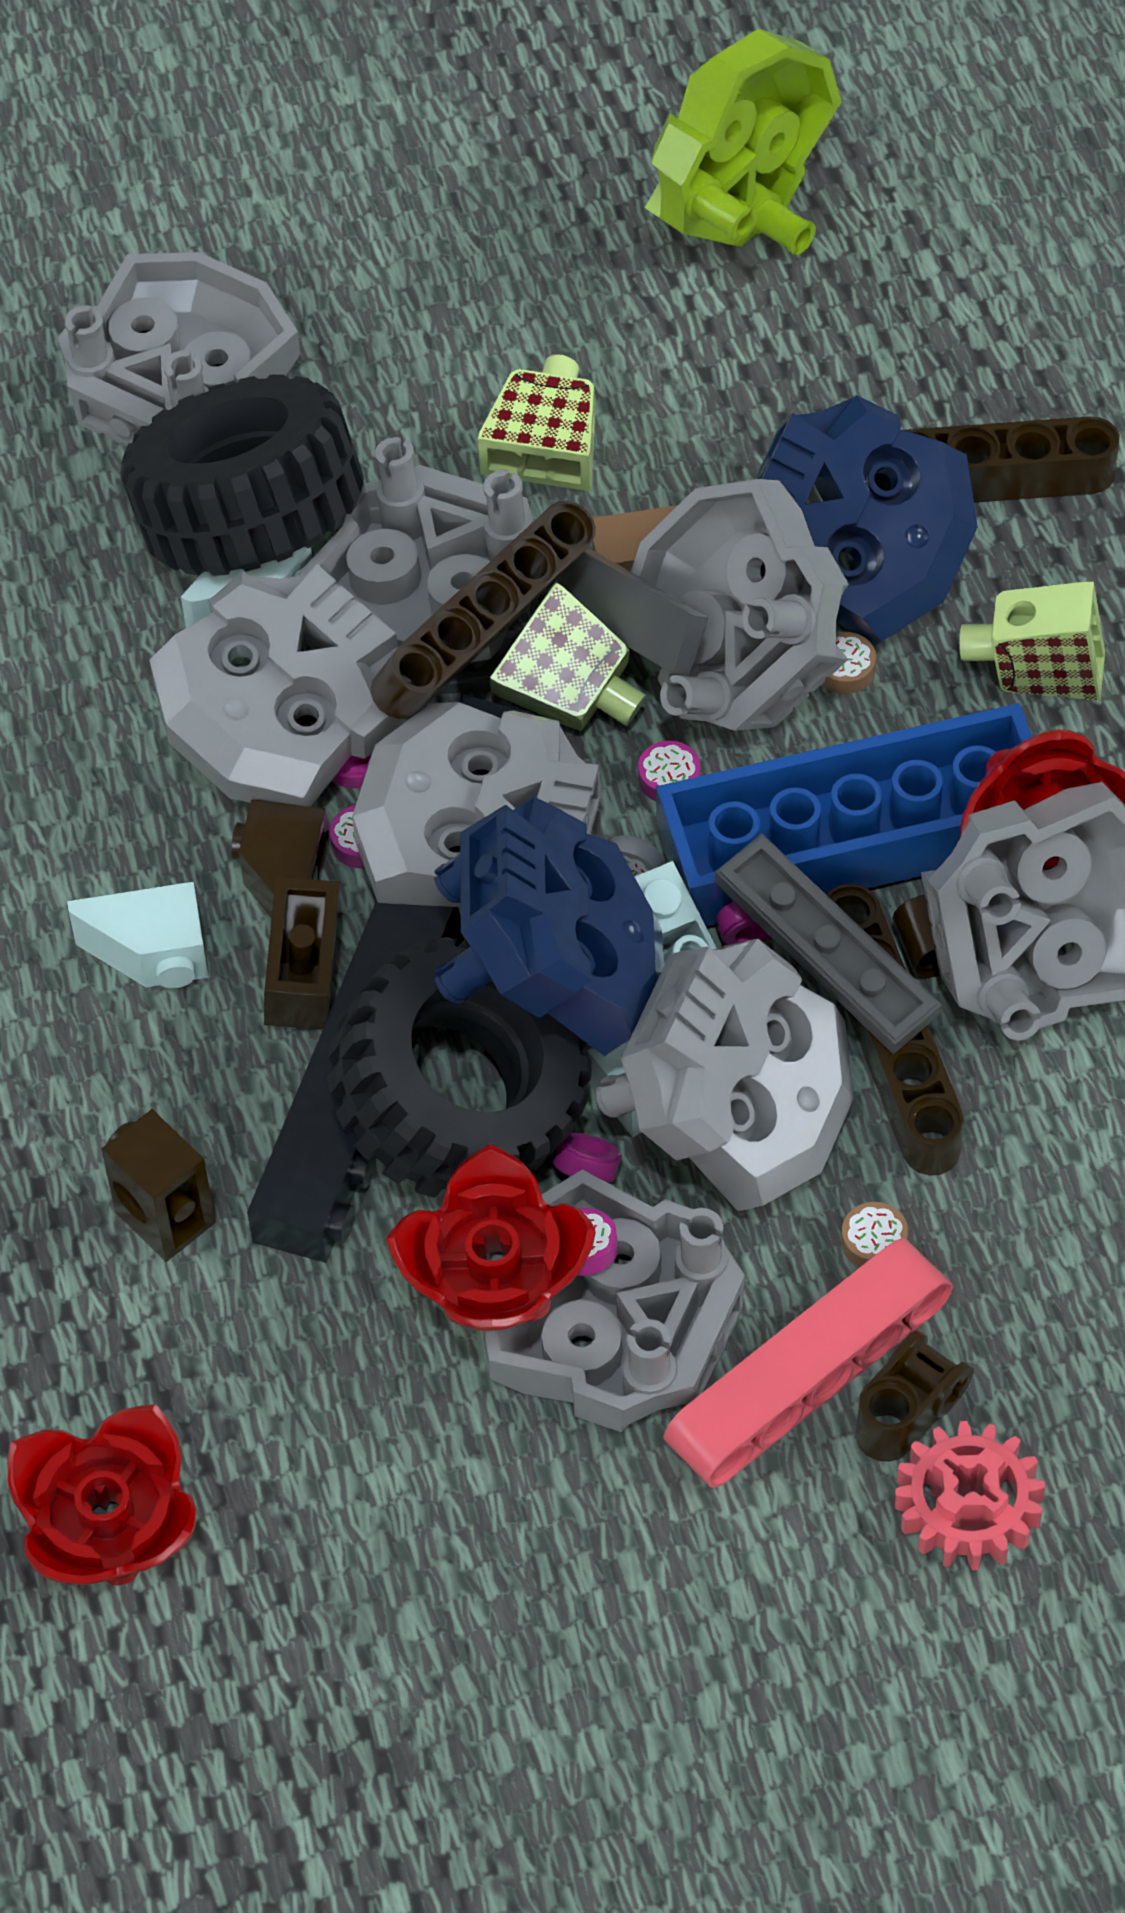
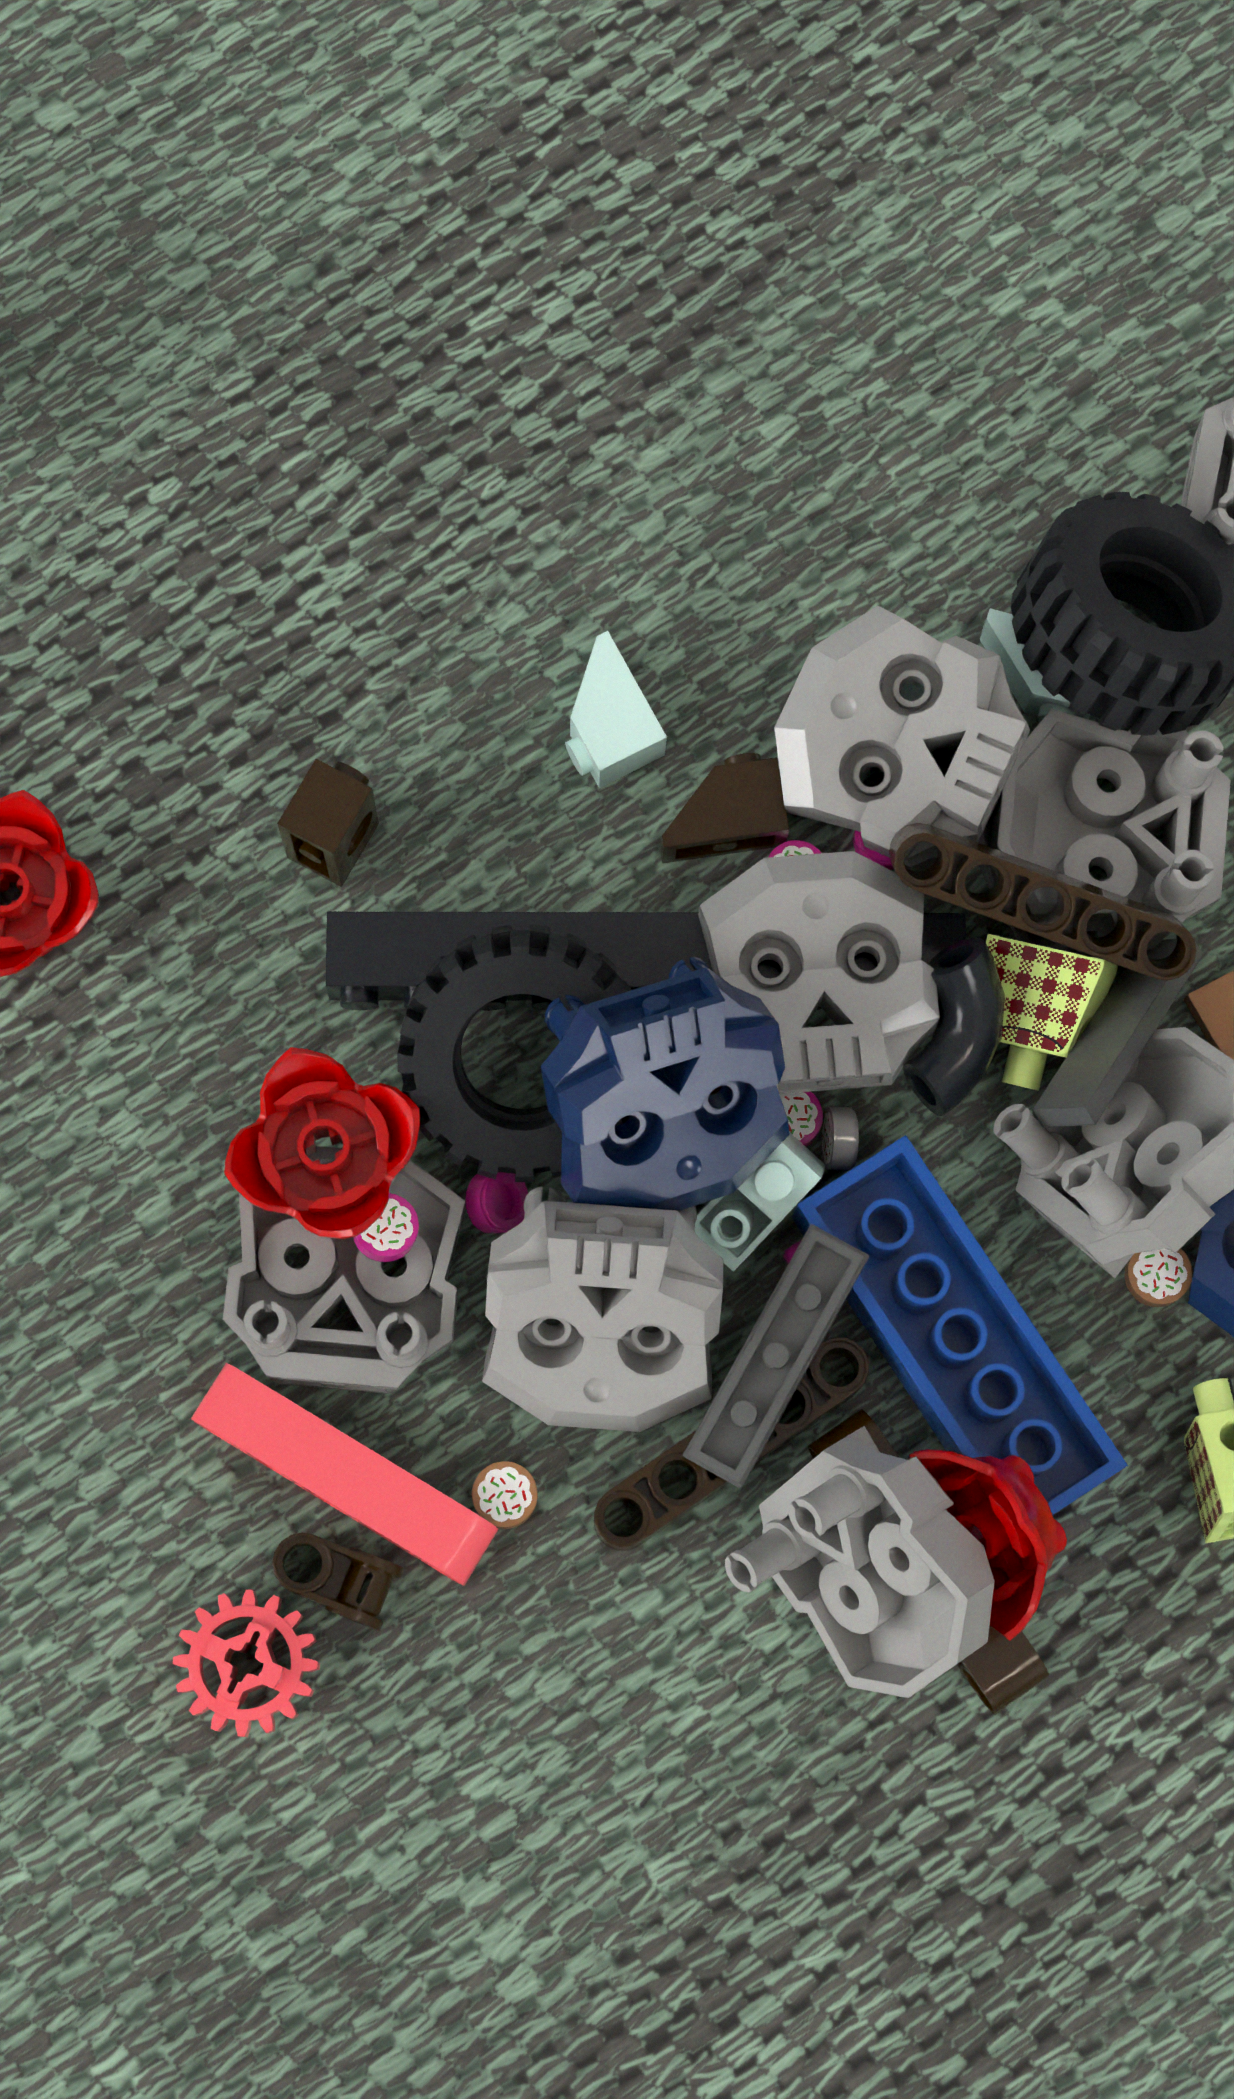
camera: 65 degrees right, 20 degrees up
(301, 953) = (622, 862): dark brown slope -> none
(587, 719) = (967, 1028): none -> black cylinder
(665, 764) = (967, 1141): tile -> none

